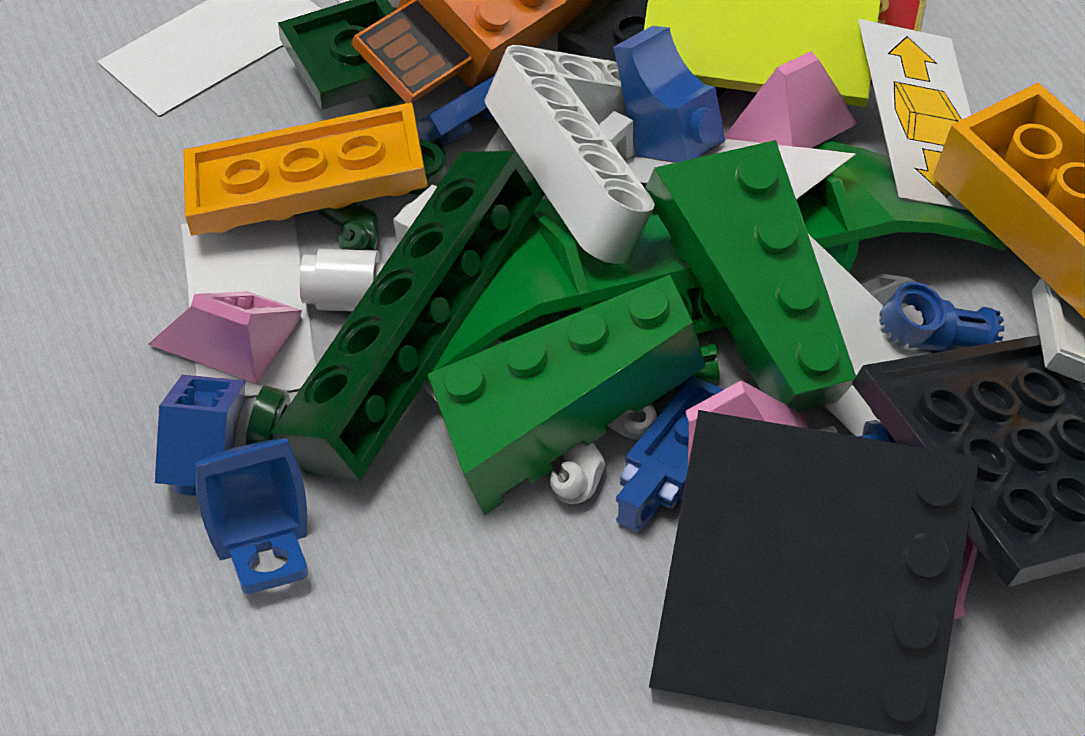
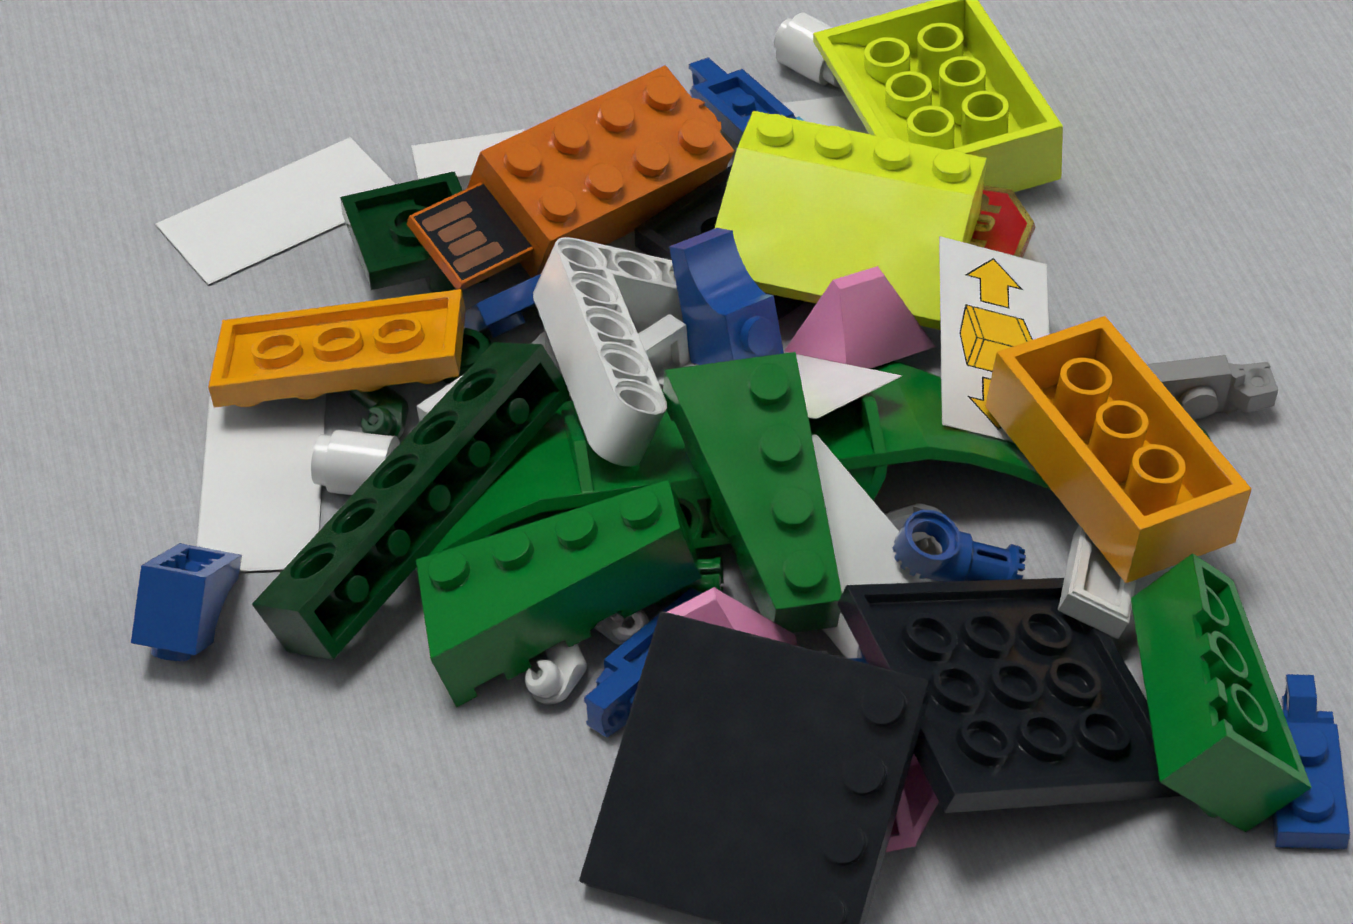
camera: 10 degrees right, 5 degrees down
(230, 332) = (235, 505): bright pink slope -> none
(255, 503) = (222, 673): blue piece -> none
(266, 413) = (251, 583): dark green tile -> none

